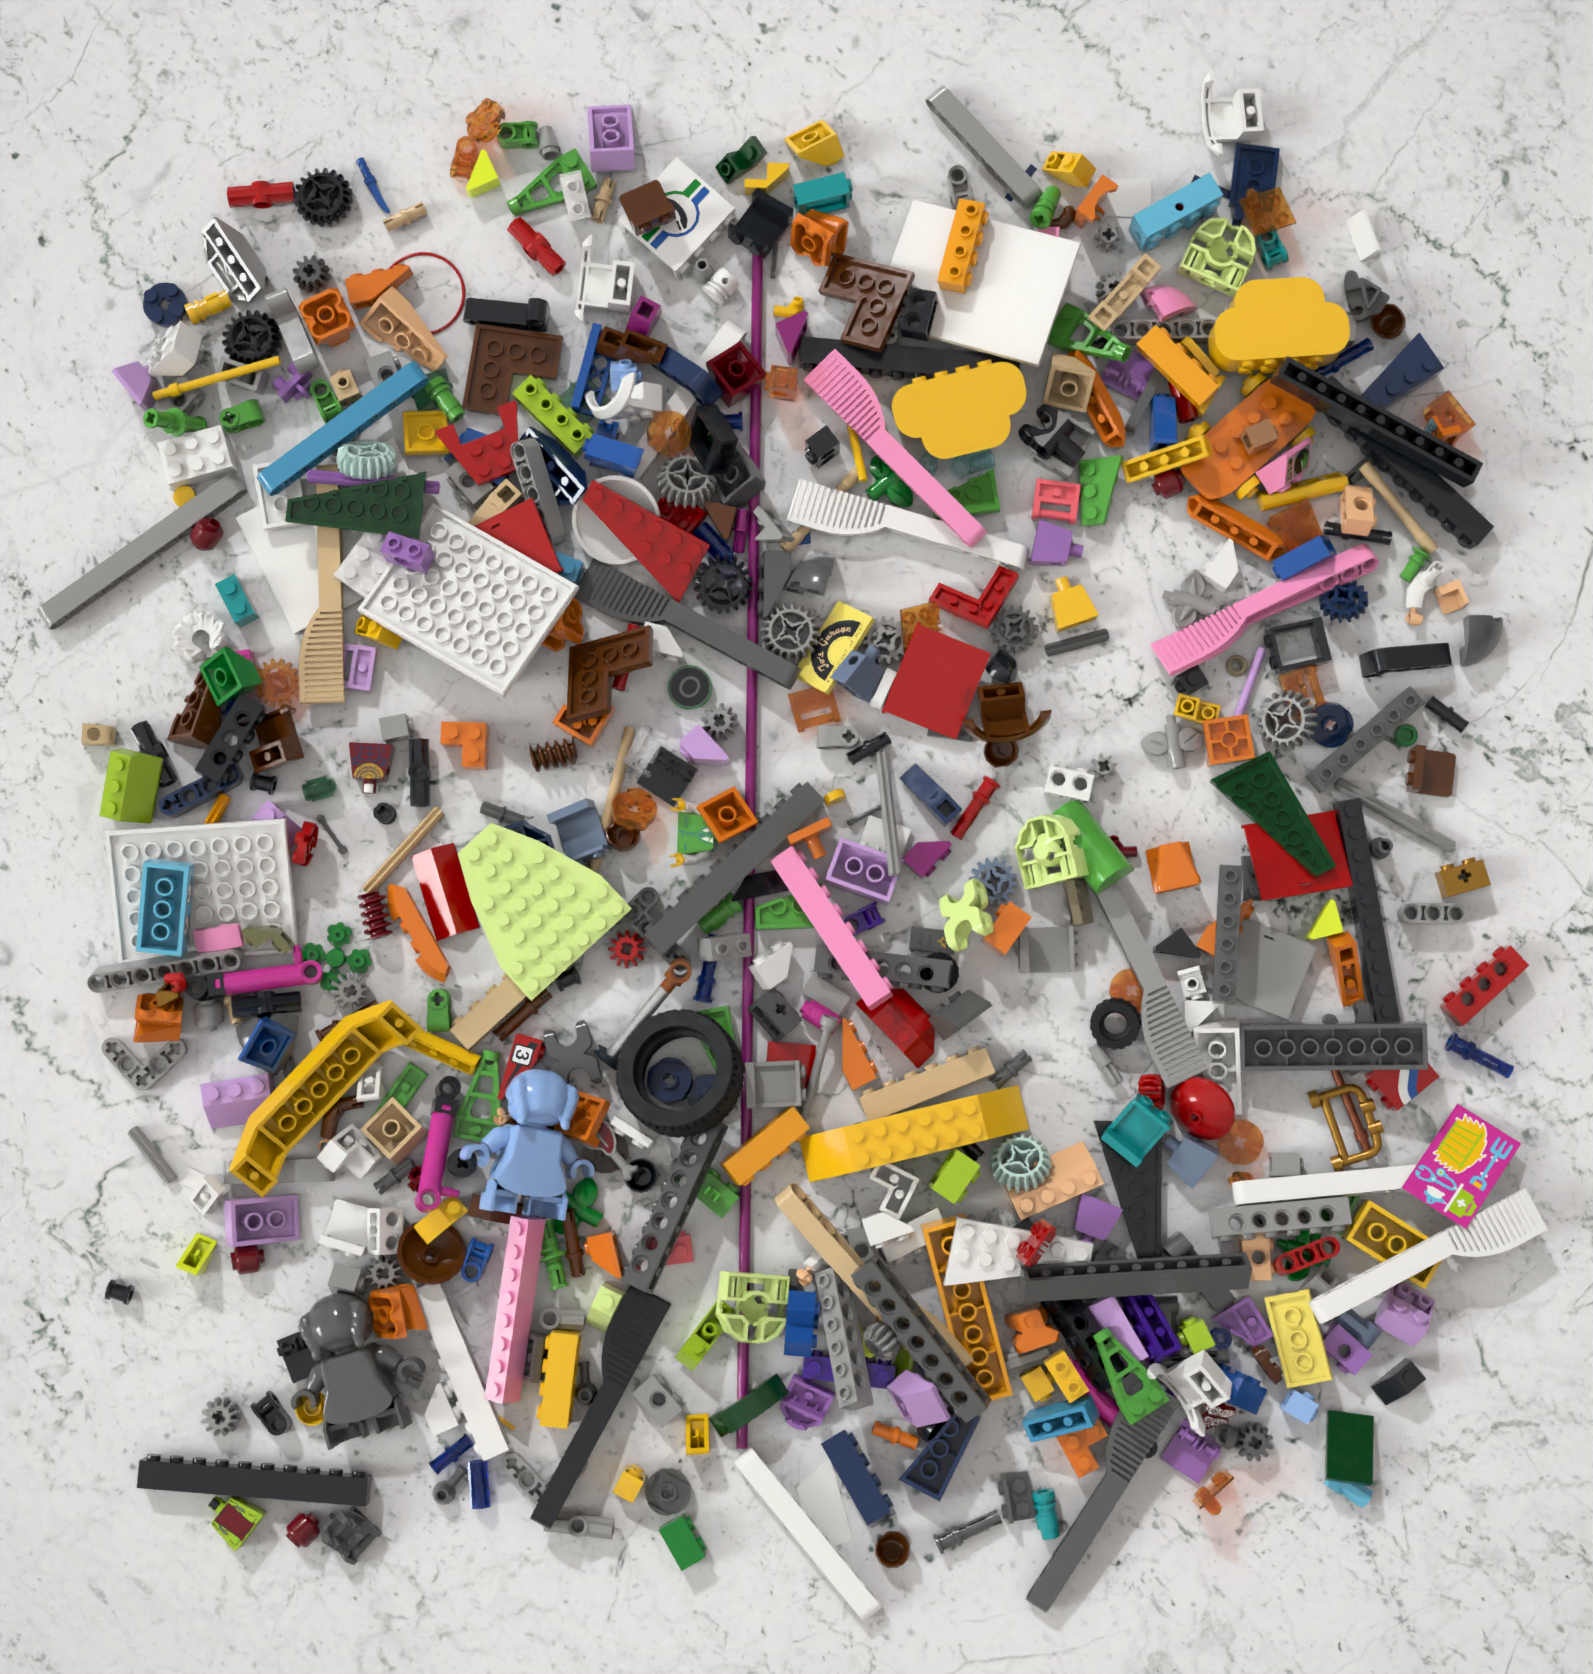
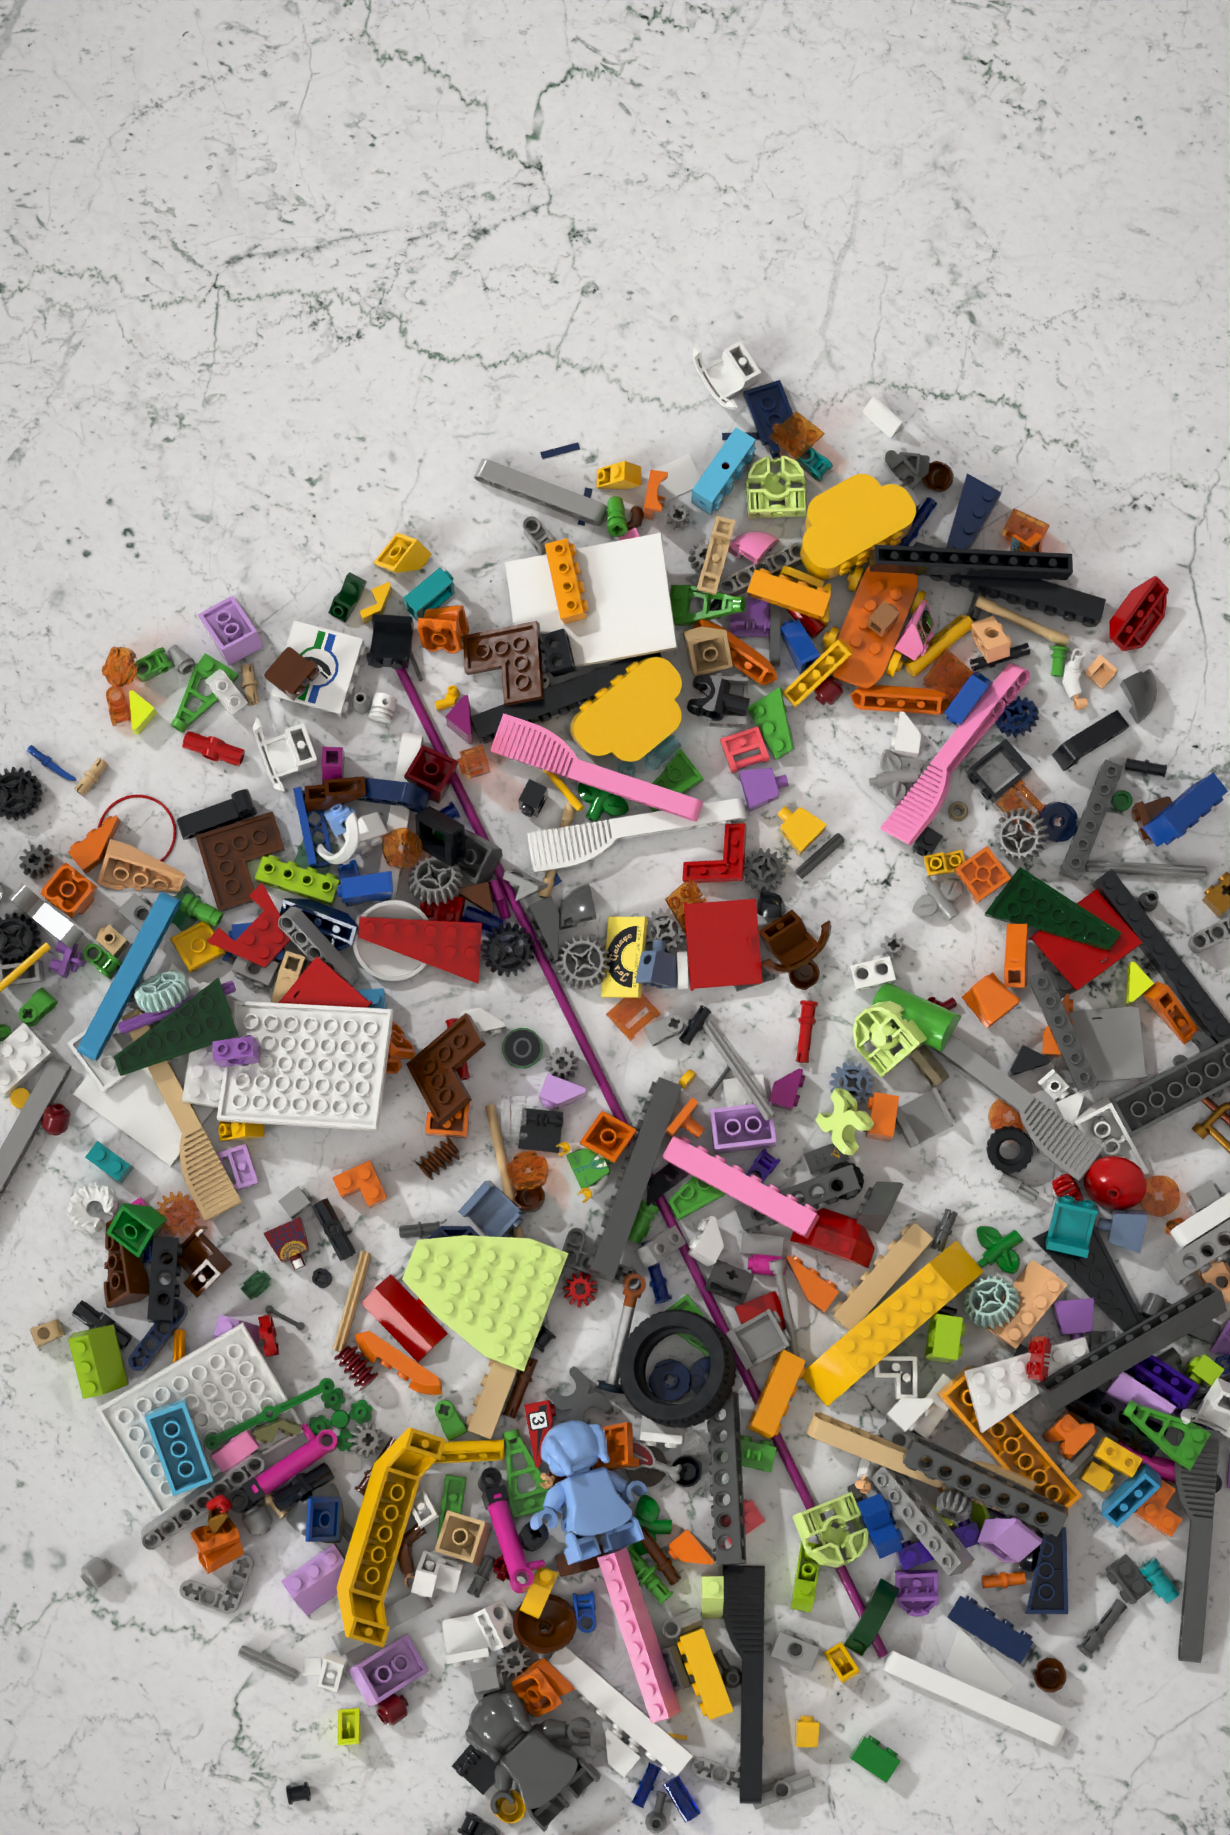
camera: 30 degrees left, 5 degrees down
(33, 987) = (96, 1572): none -> light grey head
(203, 917) = (213, 1440): none -> green piece
(263, 783) = (206, 1303): black bush -> none
(635, 603) = (444, 1000): dark grey piece -> none
(654, 1492) = (850, 1715): dark grey plate -> none
(931, 795) = (765, 1038): dark blue slope -> none
(1024, 115) = (560, 450): none -> dark blue piece
(1055, 1114) = (999, 1248): none -> green plant
(1219, 837) = (1016, 956): none -> orange slope
(1250, 681) = (975, 818): lavender piece -> none
(1464, 776) = (1186, 810): none -> blue brick
(1519, 558) = (1139, 615): none -> red wedge

